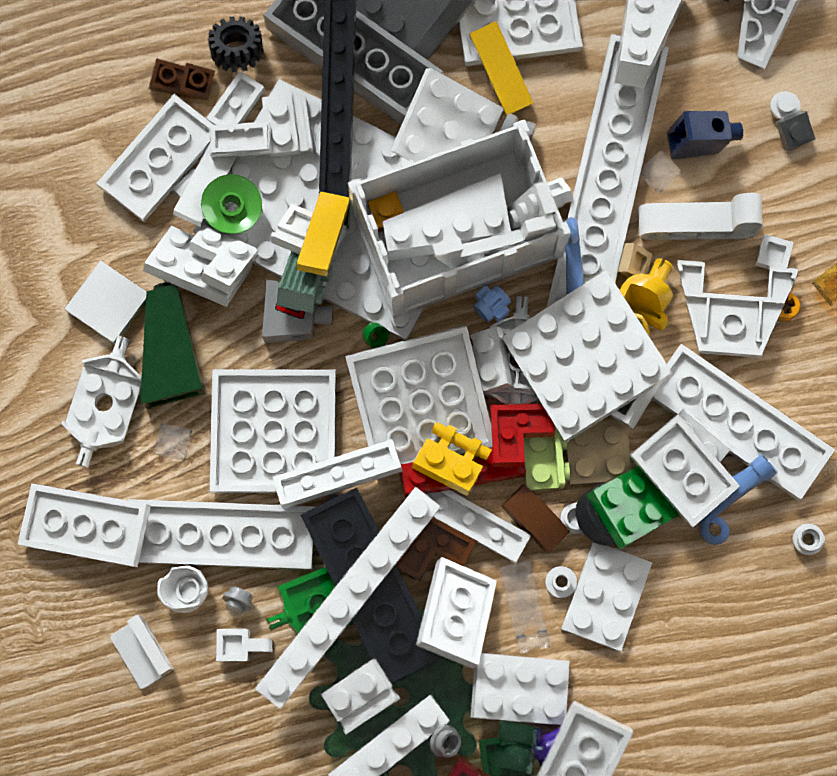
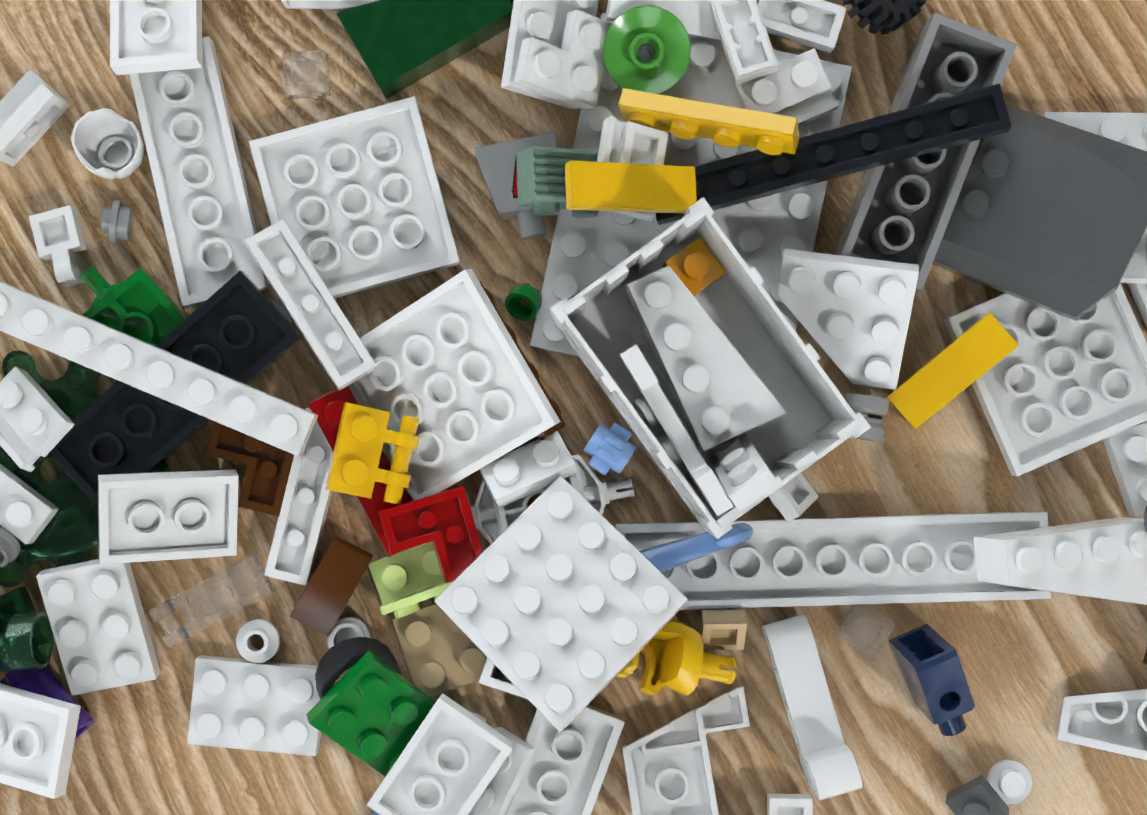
camera: 70 degrees right, 10 degrees up
(296, 167) = (717, 122): none -> yellow plate

